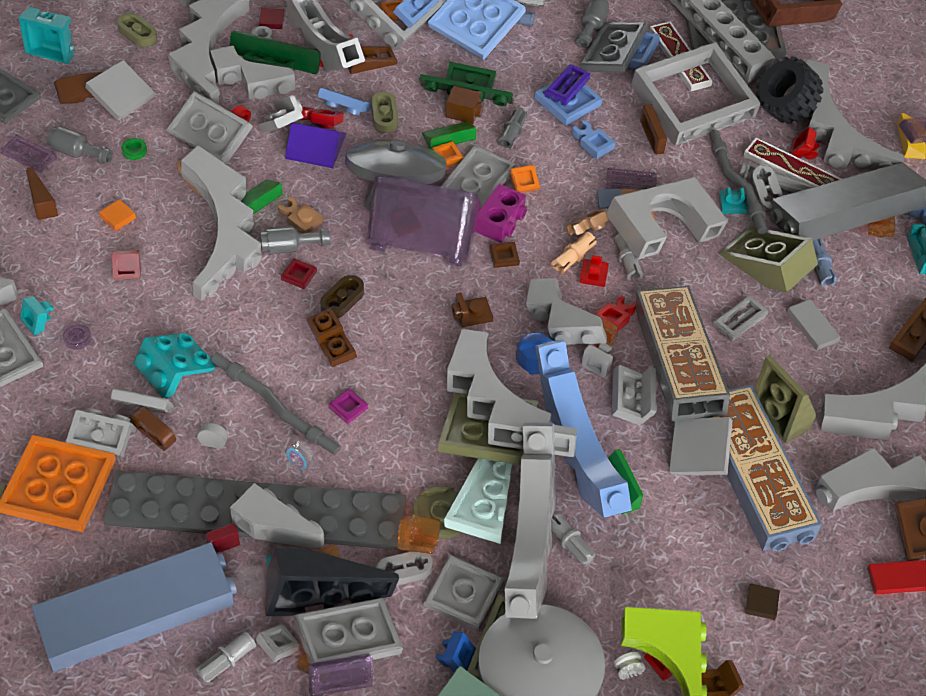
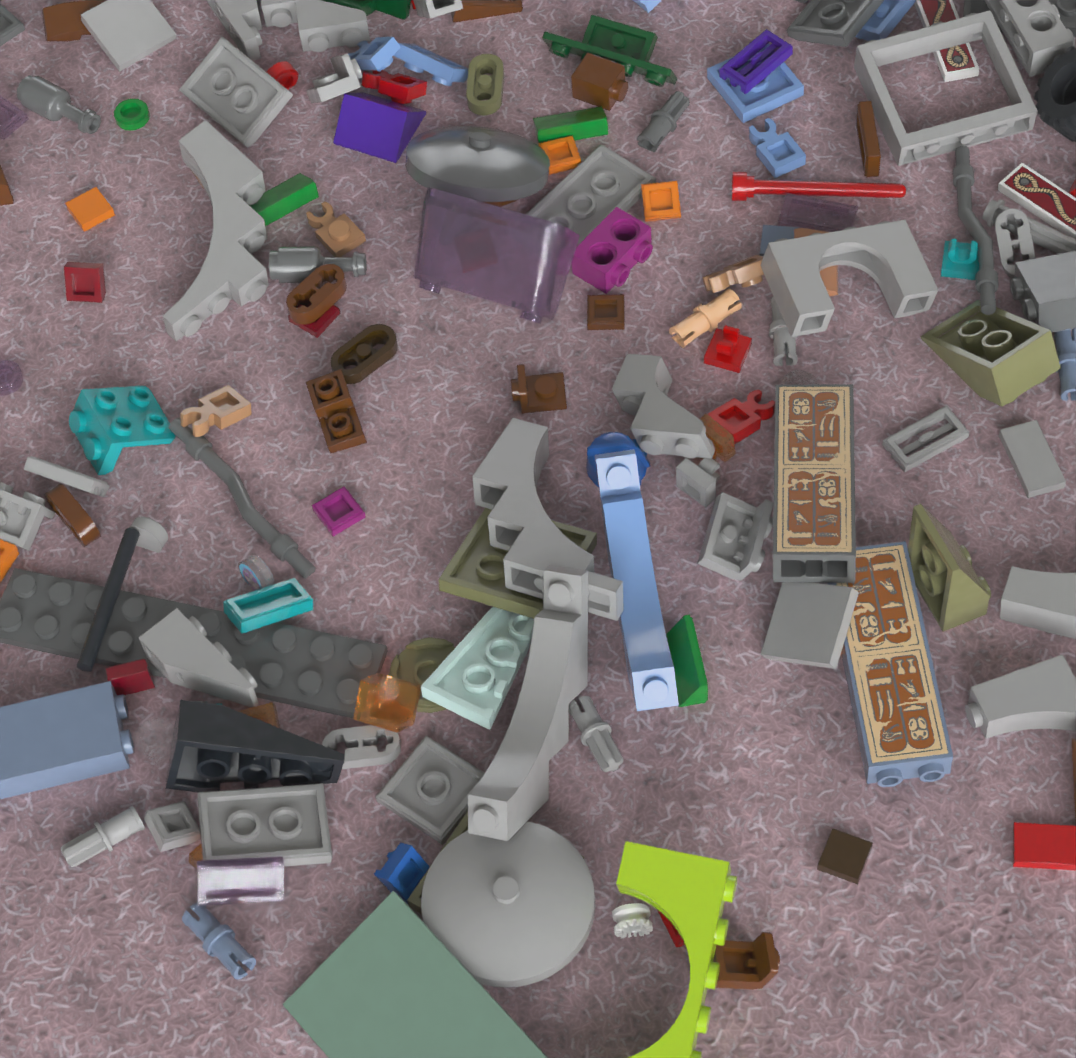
camera: 20 degrees right, 5 degrees up
(195, 485) = (108, 600): none -> black bar
(246, 342) = (217, 408): none -> medium nougat plate
(296, 256) = (318, 295): none -> reddish brown beam
(307, 94) = (376, 54): none -> medium blue plate
(314, 476) = (268, 605): none -> teal tile
(580, 165) = (746, 186): none -> red piece

